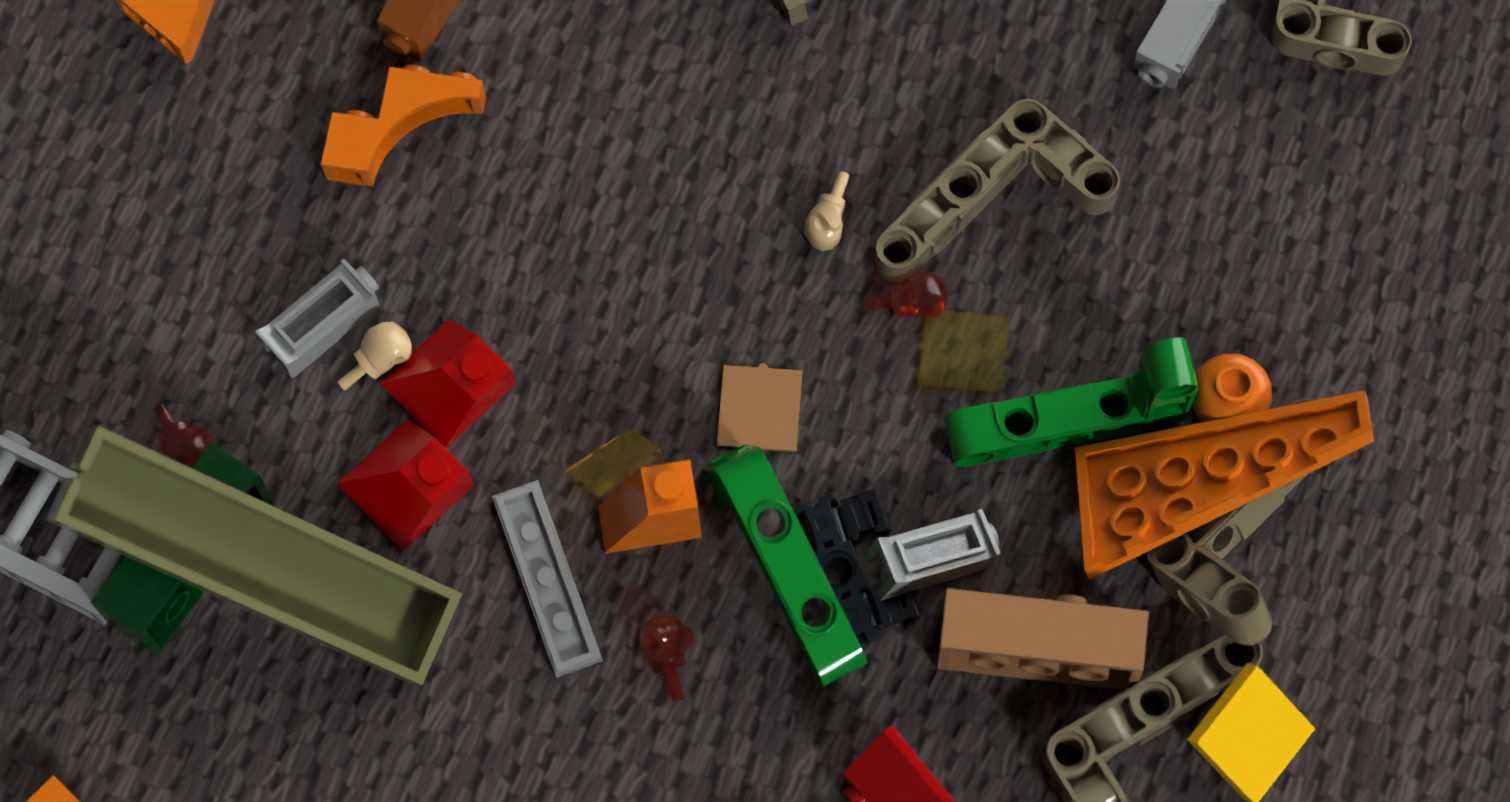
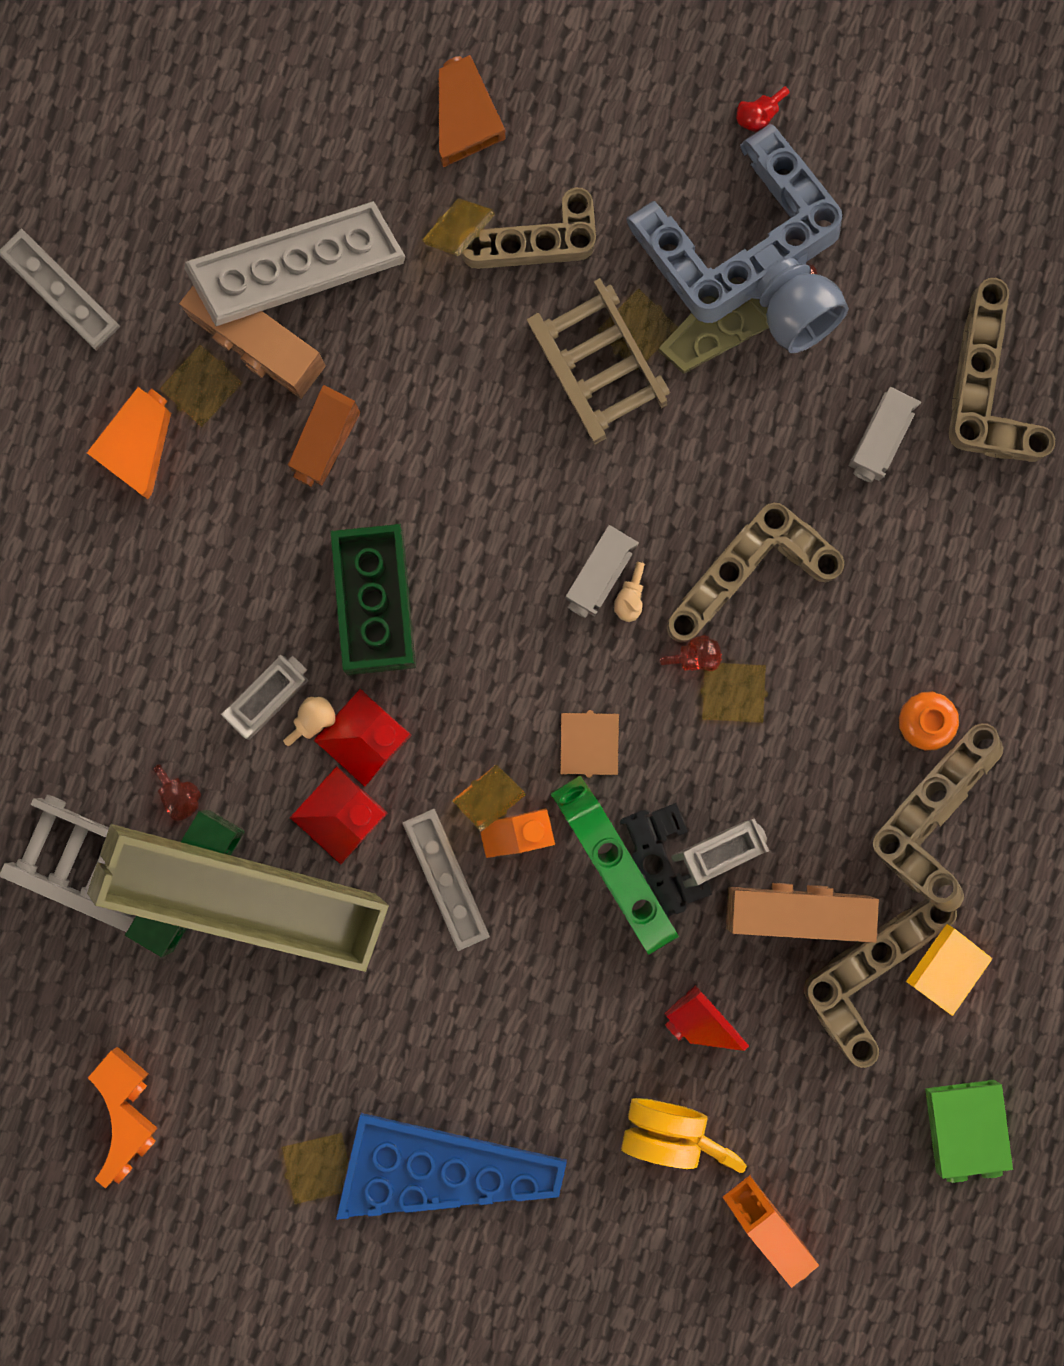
camera: 10 degrees left, 15 degrees up
(411, 97) = (282, 560): orange arch -> none
(476, 198) = (373, 599): none -> dark green brick
(665, 644) = (532, 926): clear red piece -> none
(788, 180) = (600, 572): none -> light grey window
(1153, 395) = (817, 740): green beam -> none
(1176, 479) = (894, 790): orange wing -> none

